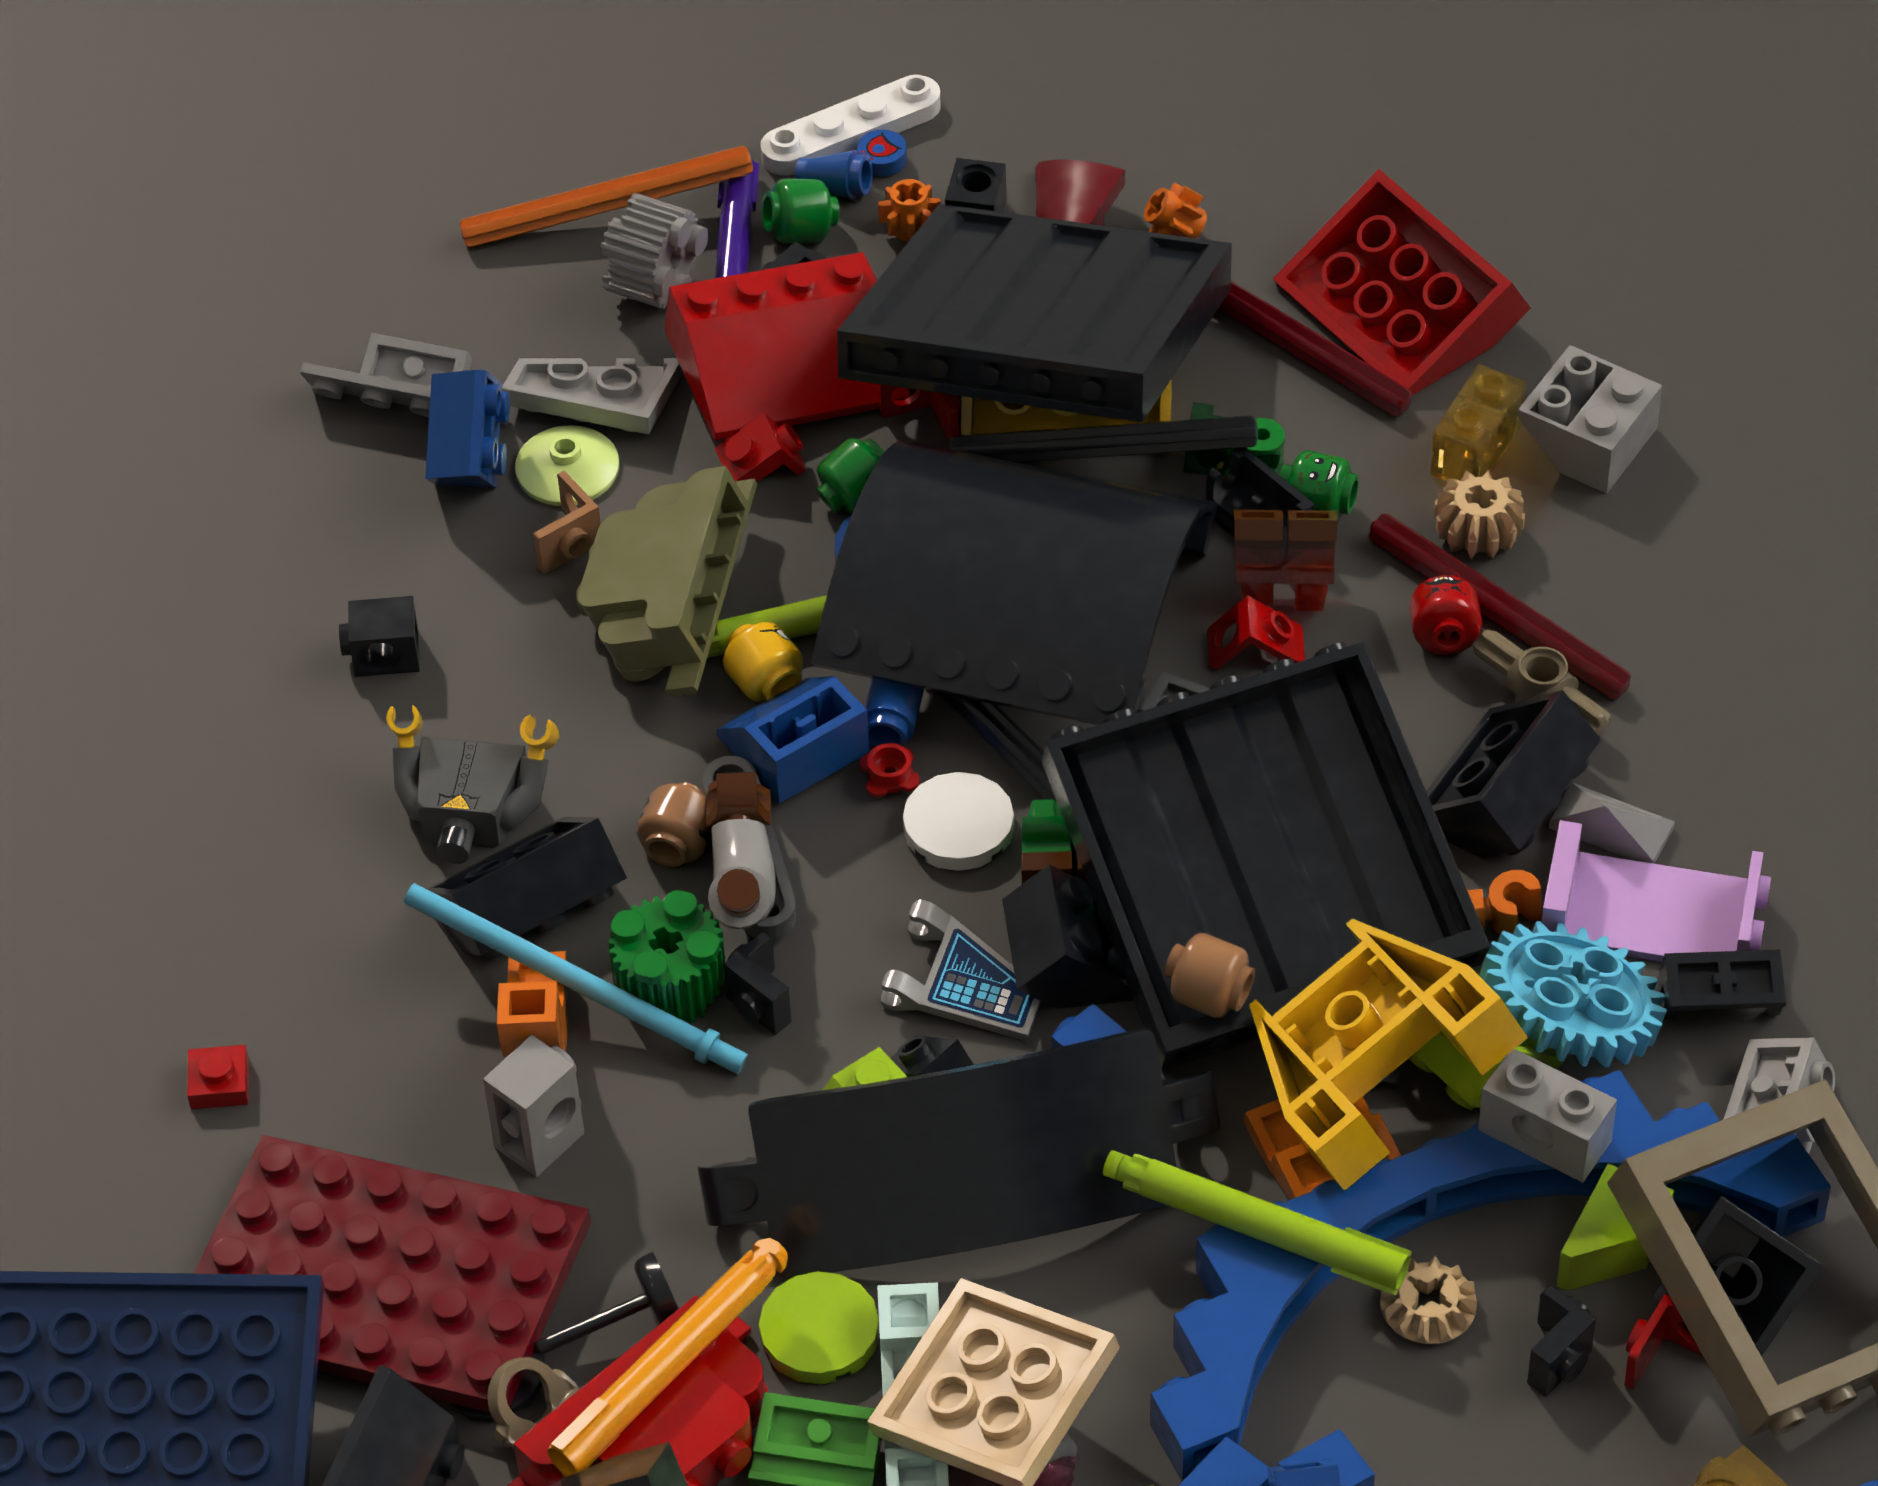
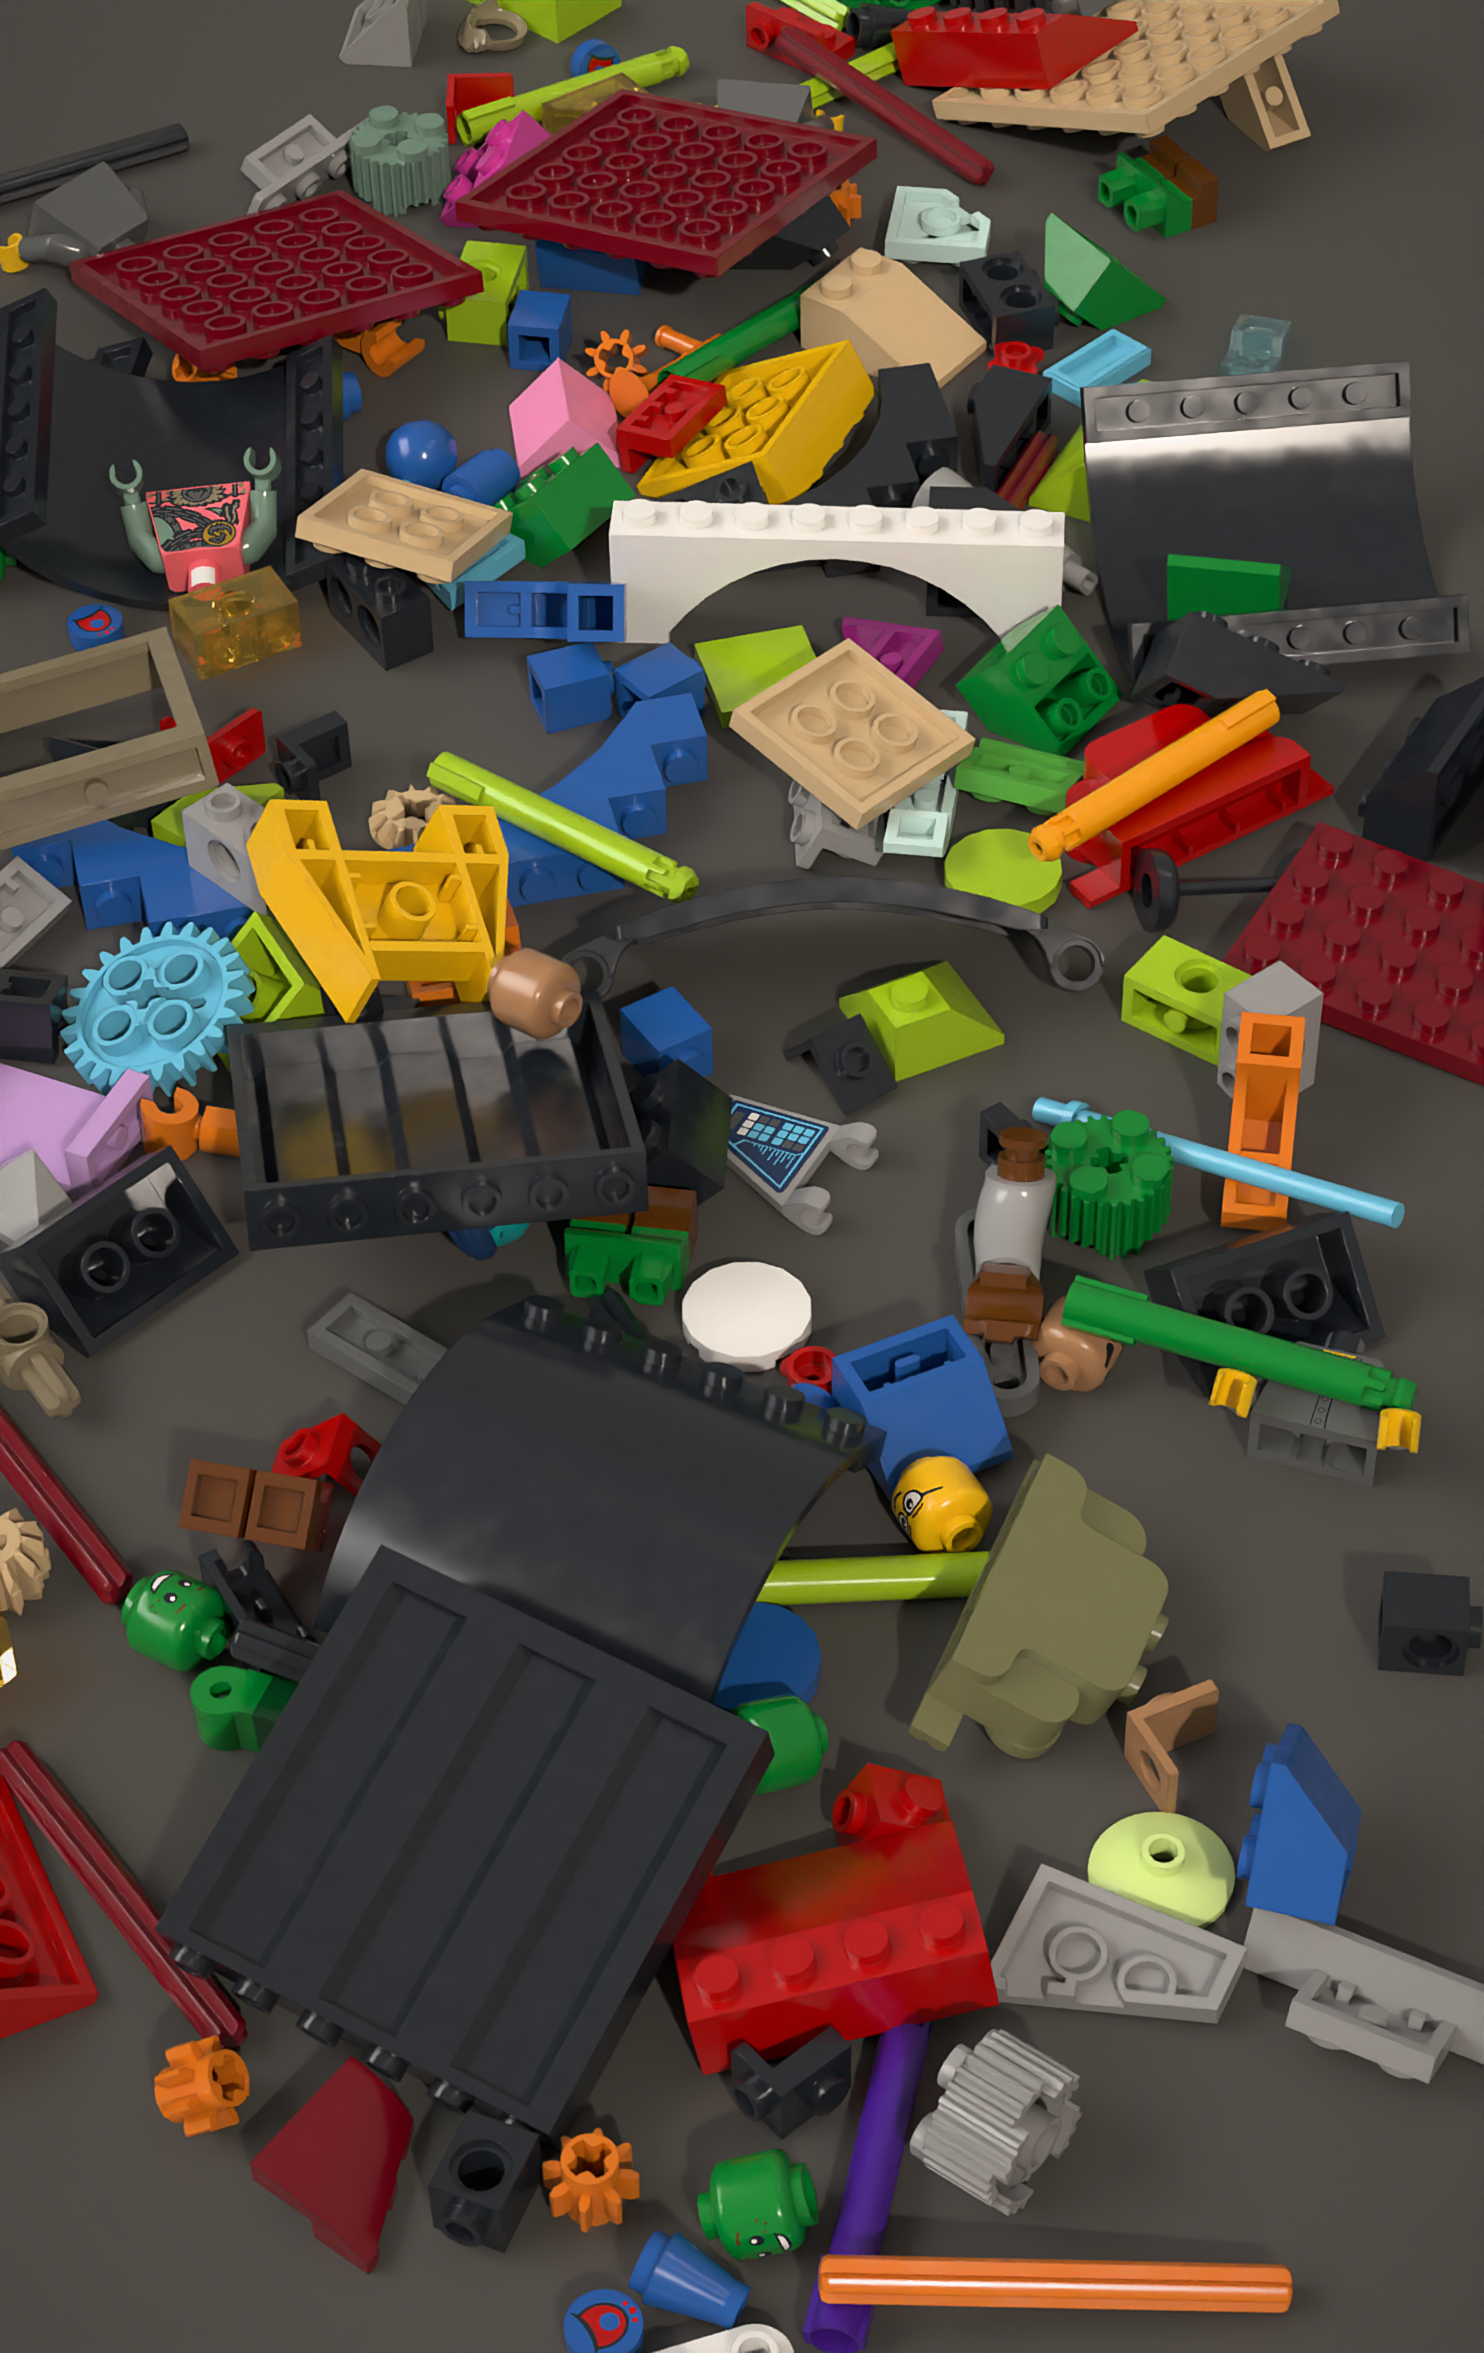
camera: 170 degrees left, 5 degrees down
(539, 770) = (1131, 1319): none -> green piece
(557, 1389) = (1285, 836): dark tan piece -> none
(641, 1175) = (1179, 996): none -> lime brick
(1444, 609) = (94, 1439): red head -> none

